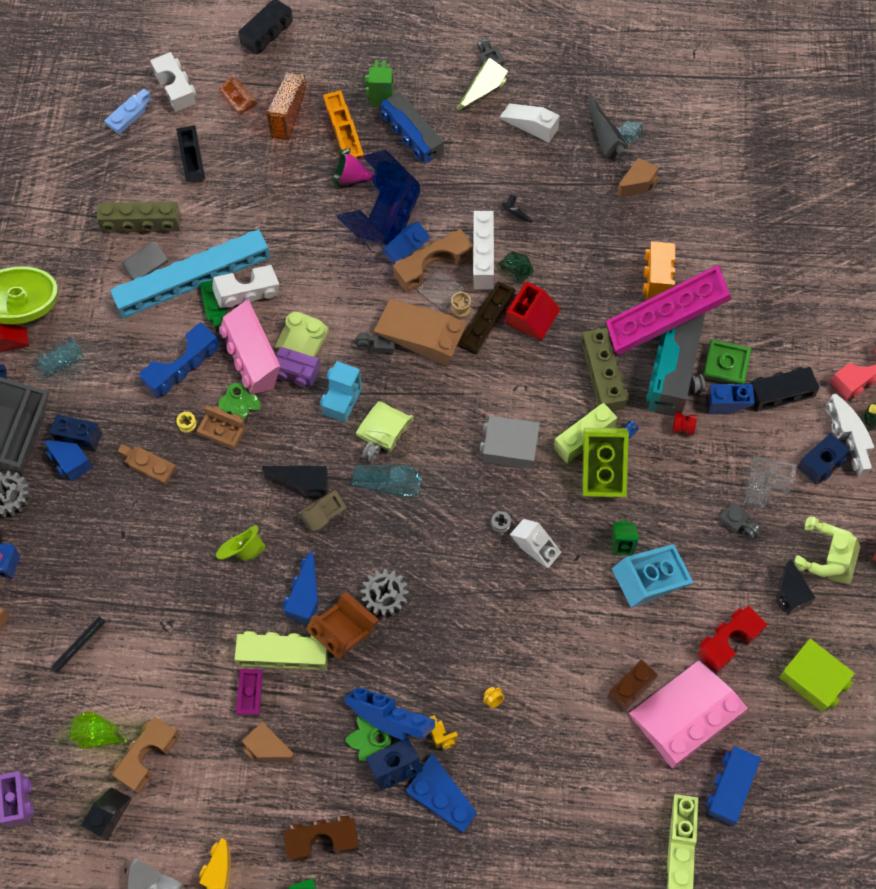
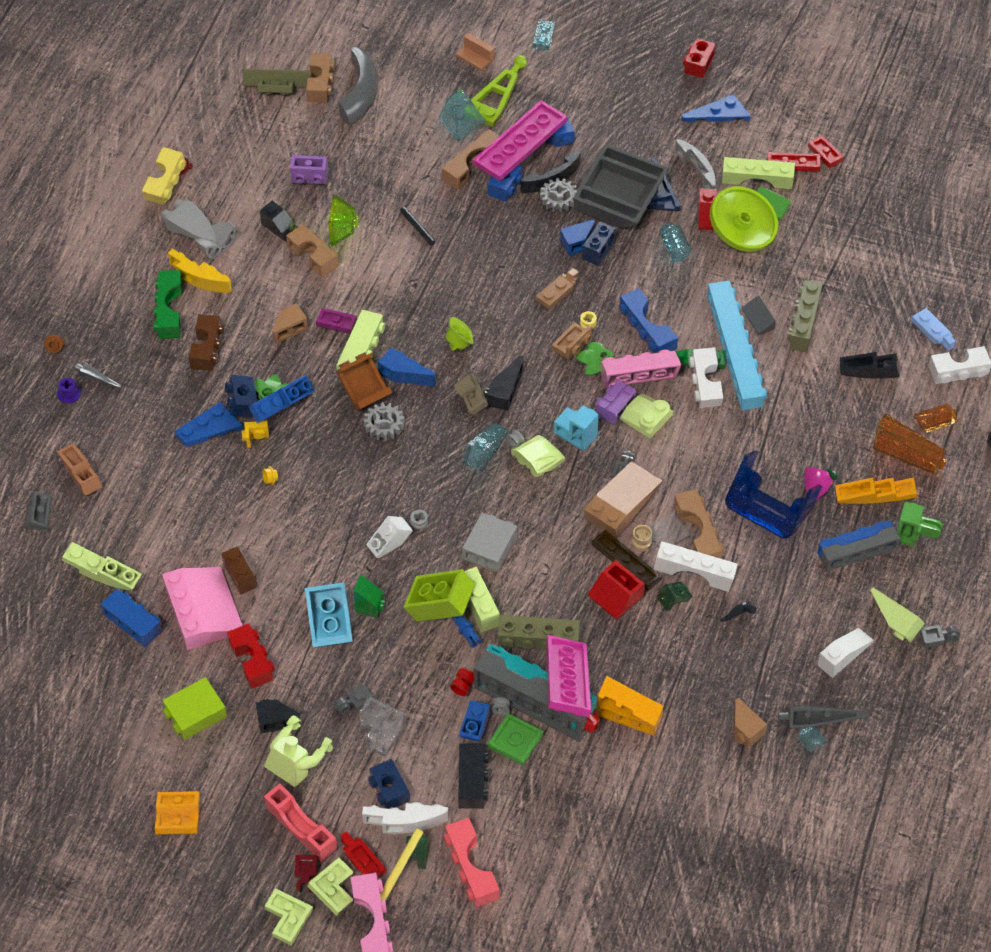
camera: 105 degrees right, 10 degrees down
(406, 242) = (721, 508): blue arch -> none

